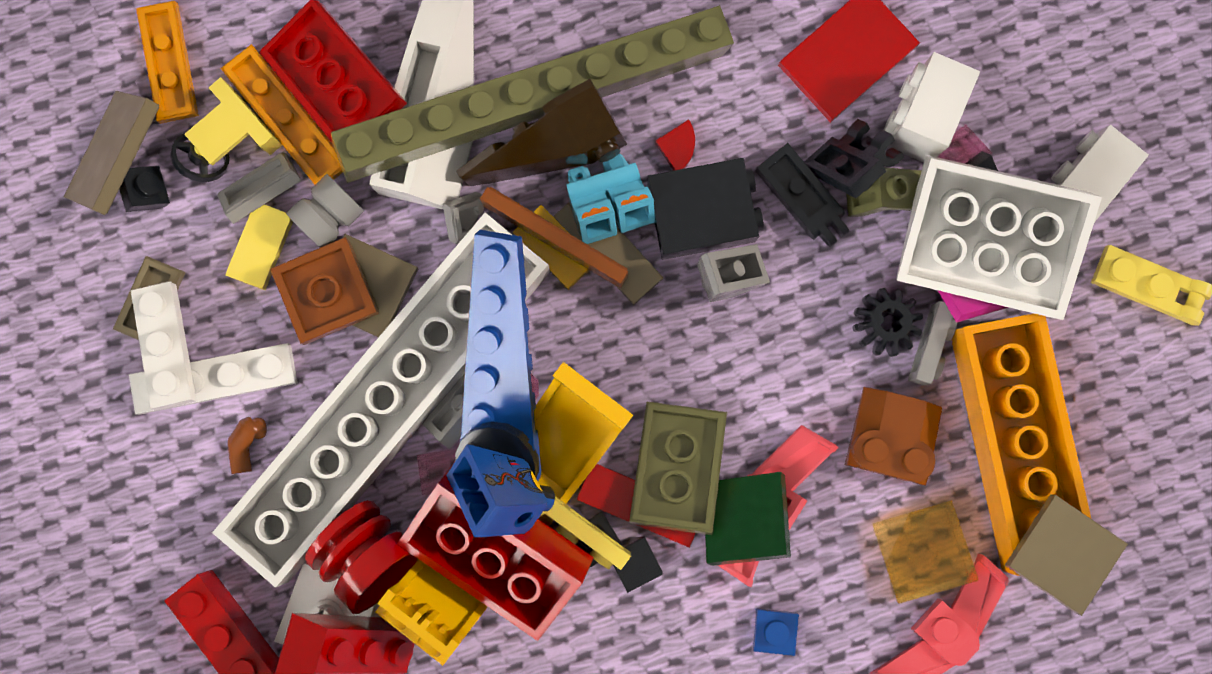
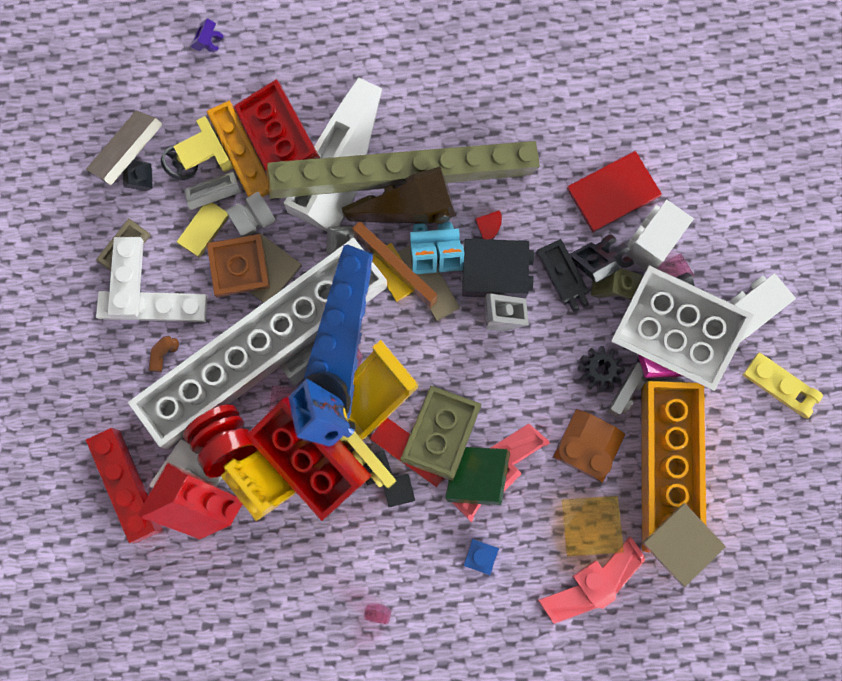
camera: 10 degrees right, 5 degrees down
(167, 61) = (173, 99): light orange tile -> none

